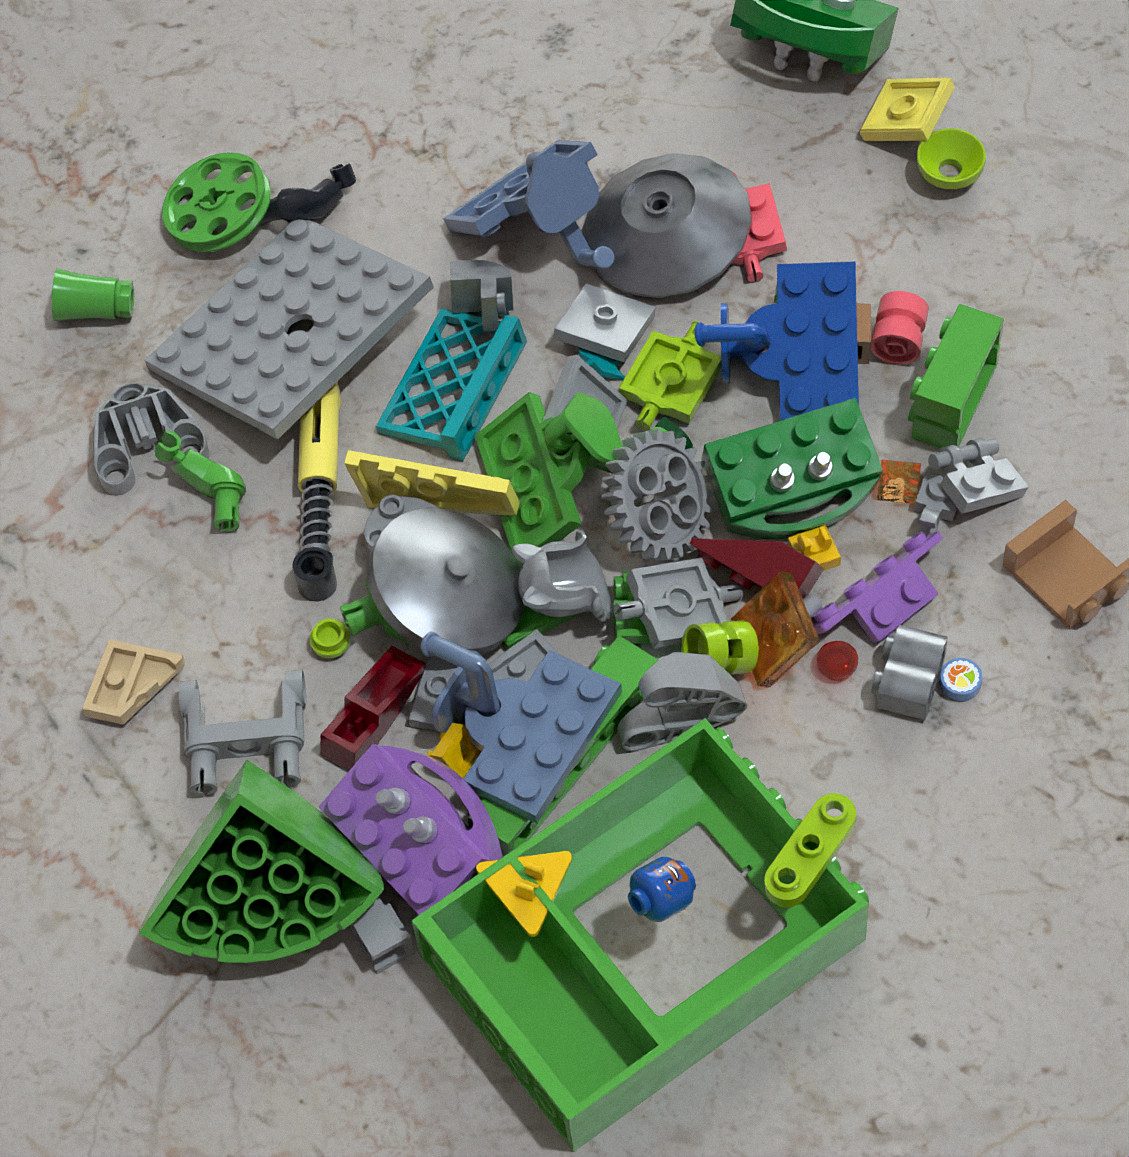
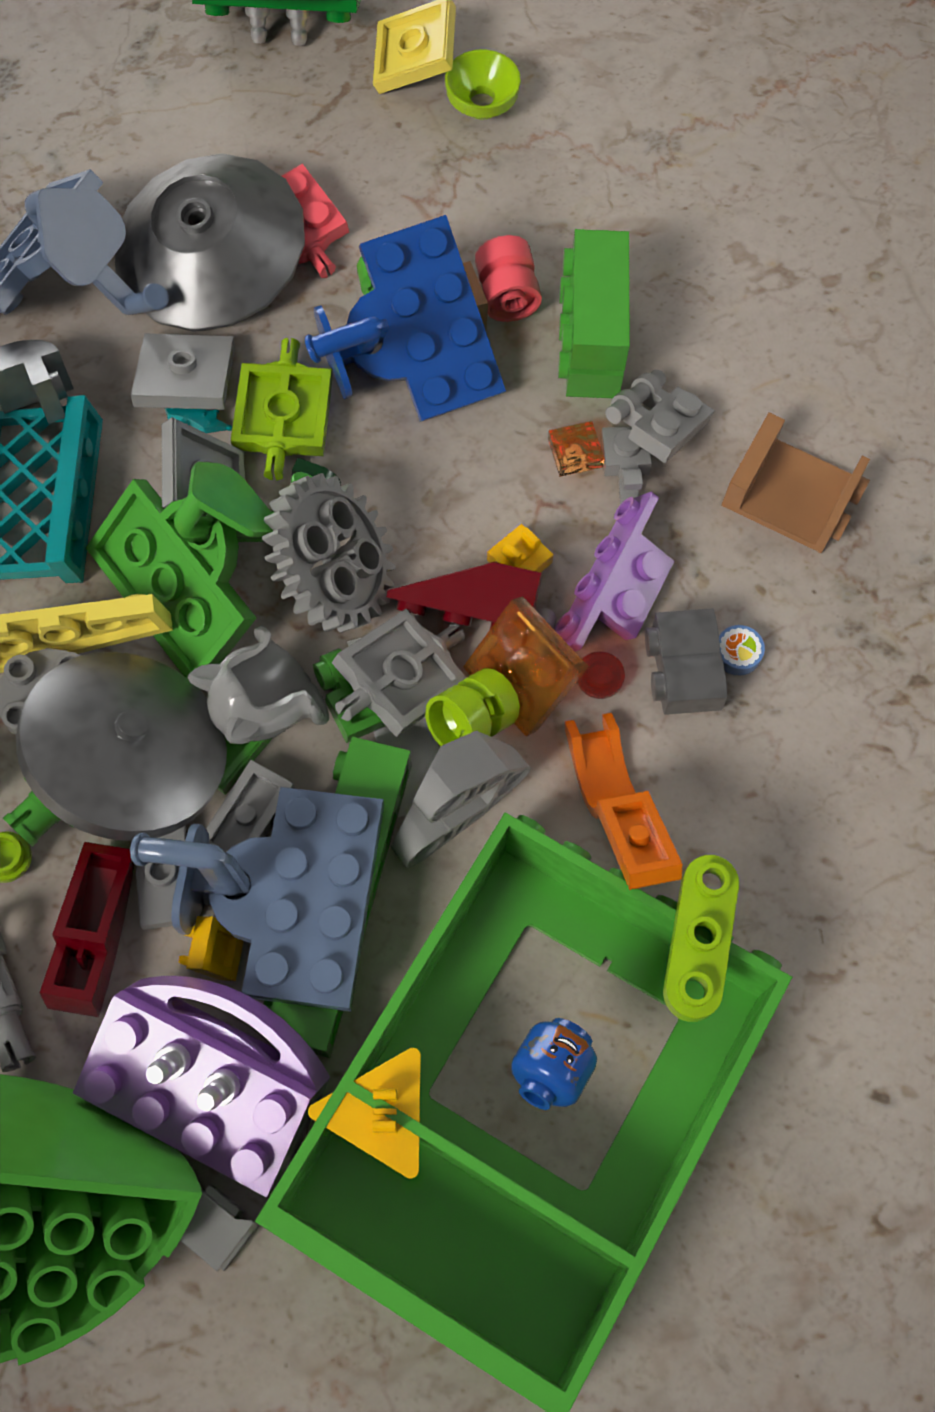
camera: 30 degrees left, 10 degrees up
(792, 470) = (464, 473): green piece -> none
(803, 750) = (628, 817): none -> orange piece

